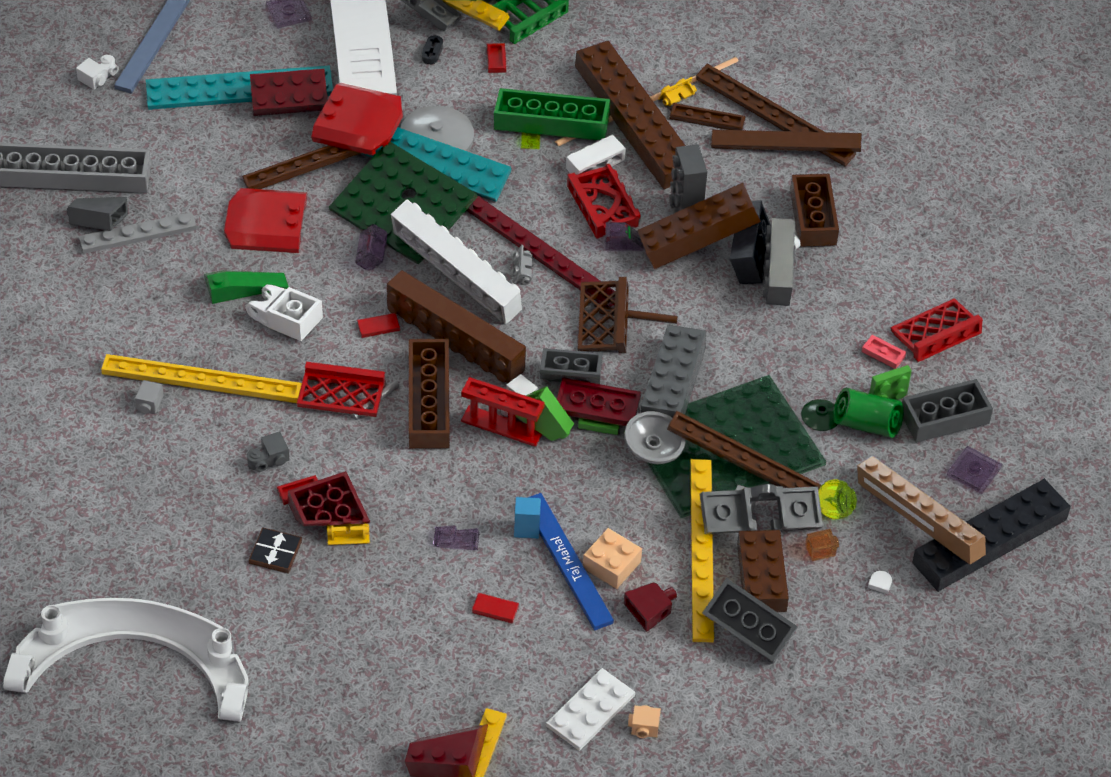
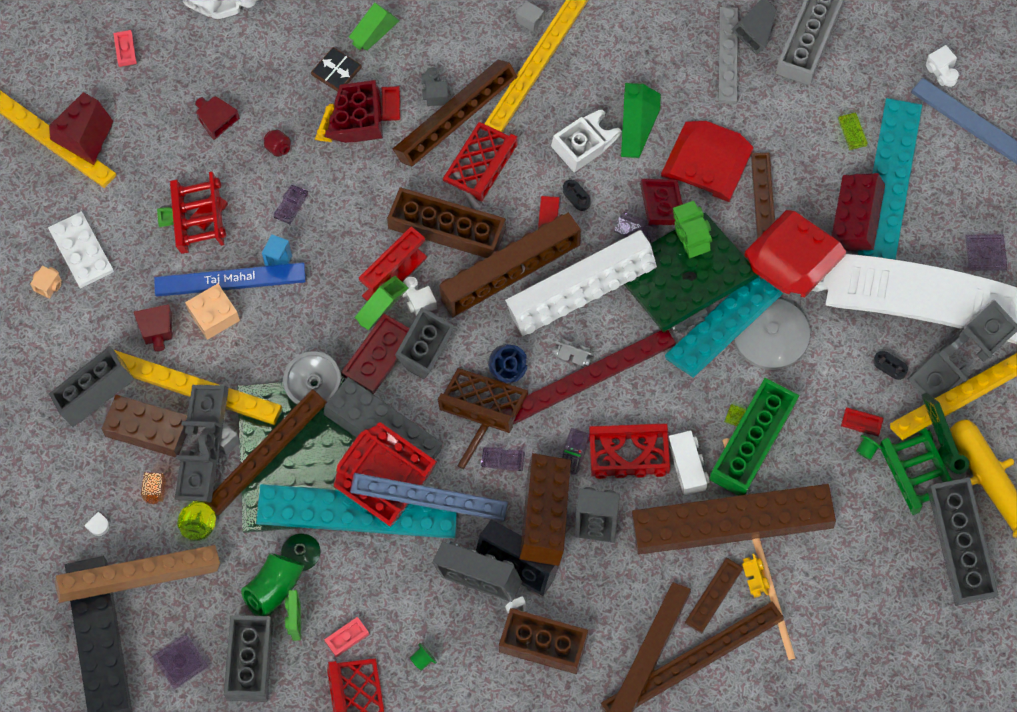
camera: 115 degrees right, 15 degrees up
(193, 123) = (852, 131): none -> clear neon green tile
(213, 525) = (372, 27): none -> bright green slope
(294, 423) = (455, 112): none -> reddish brown brick
(322, 757) = (125, 48): none -> coral plate
(334, 234) = (659, 200): none -> dark red plate
(351, 310) = (579, 192): none -> black beam
(365, 191) = (692, 229): none -> bright green brick
(379, 636) = (216, 115): none -> dark red torso
(390, 569) = (277, 143): none -> dark red head
(504, 628) = (179, 208): none -> red fence
(517, 644) = (165, 216): none -> bright green tile
(522, 45) = (868, 447): none -> green piece
(560, 305) = (507, 363): none -> dark blue cylinder
(654, 290) = (502, 459): none -> clear purple slope
(725, 349) = (382, 455): none -> red wedge
(729, 313) = (428, 497): none -> sand blue tile
(765, 375) = (336, 511): none -> teal plate
(873, 291) = (422, 657): none -> green piece

